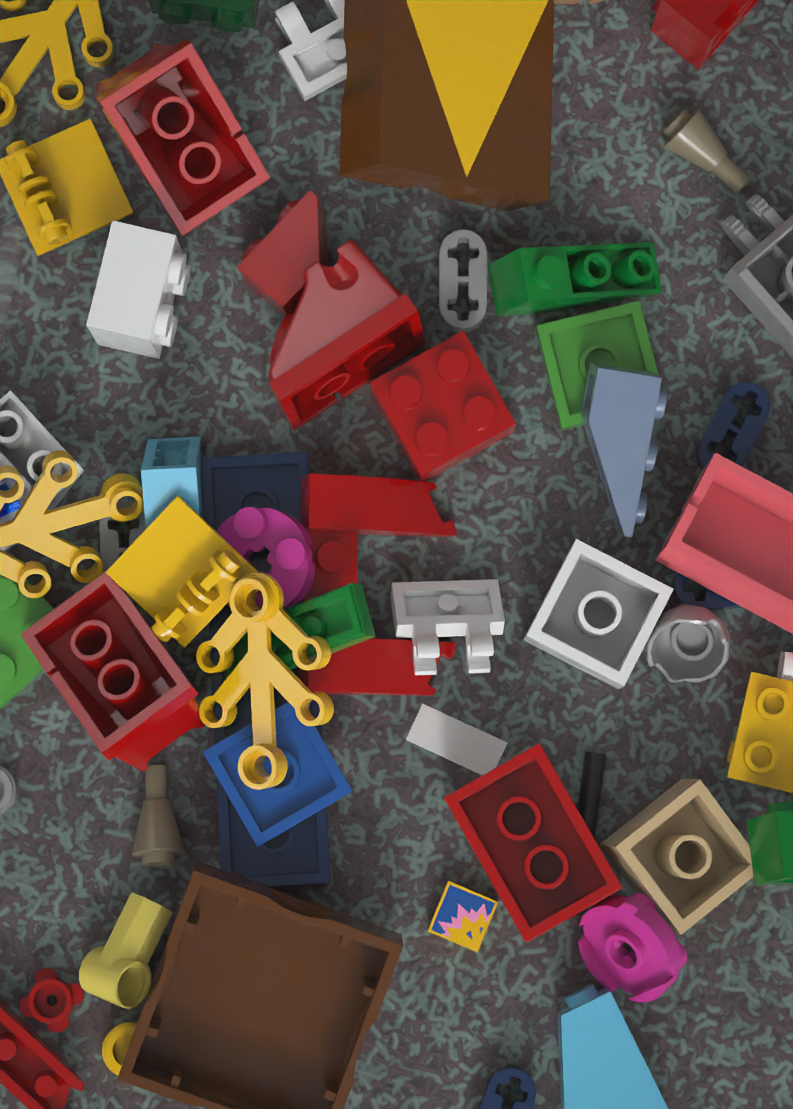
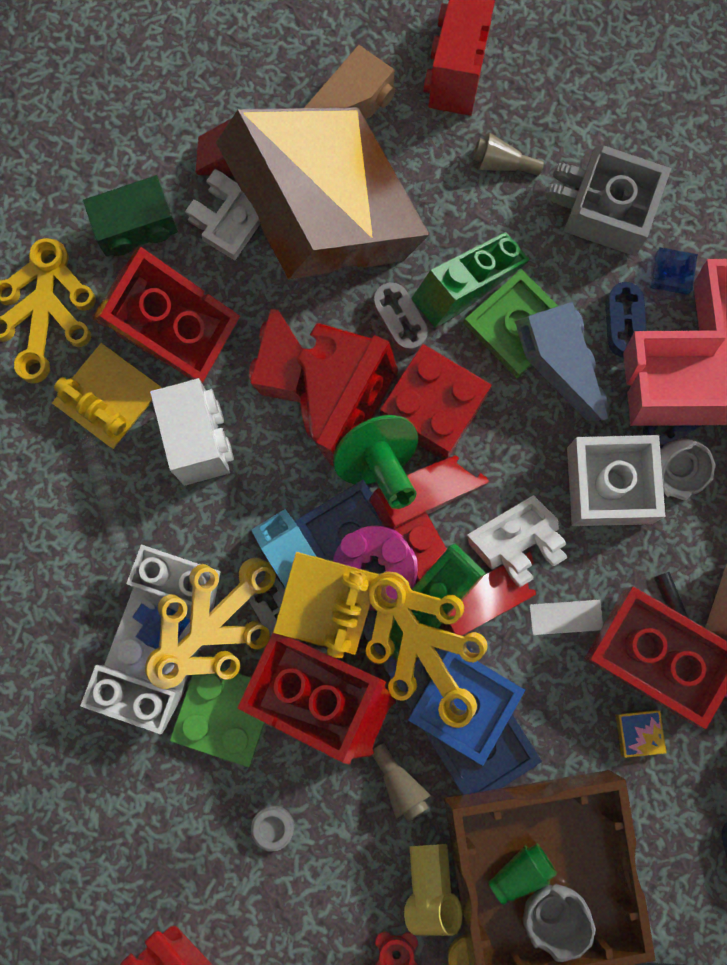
camera: 25 degrees left, 5 degrees down
(236, 987) = (523, 874): none -> green cone
(245, 1057) = (559, 922): none -> light grey hair
(336, 432) = (377, 454): none -> green piece

